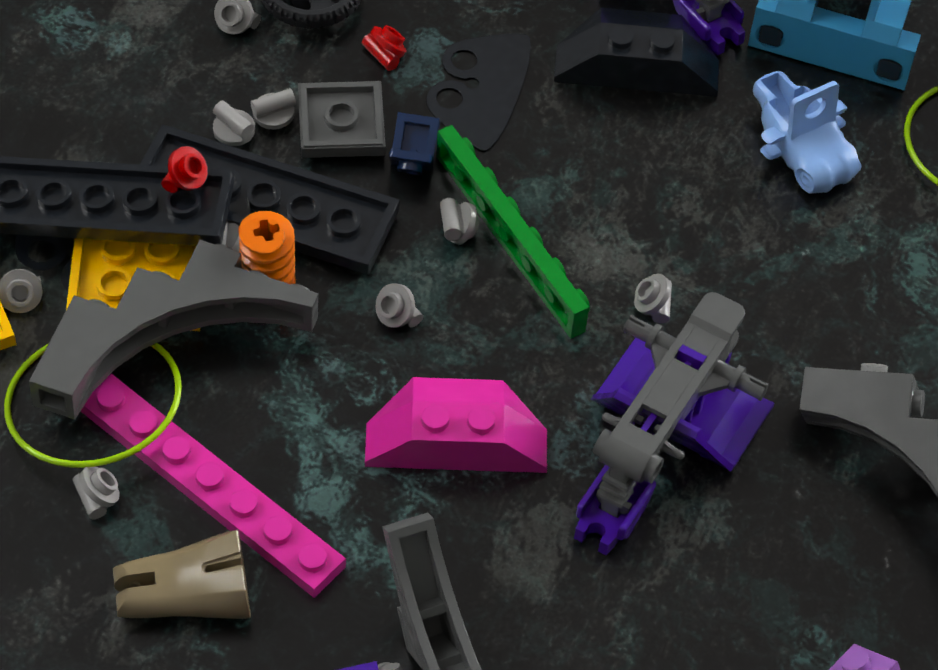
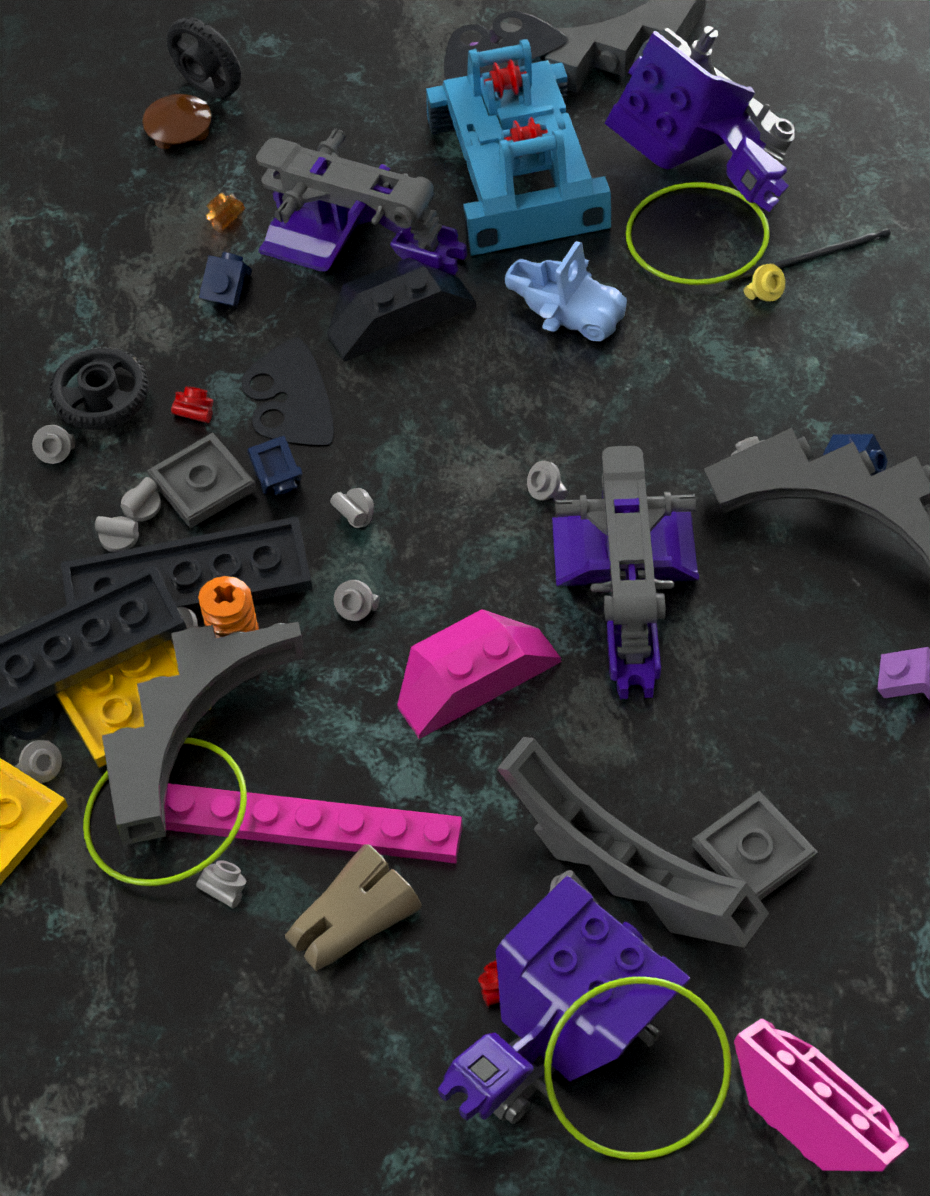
camera: 25 degrees left, 0 degrees up
(186, 170) = (119, 585): red plate -> none
(516, 237) = (403, 492): green plate -> none

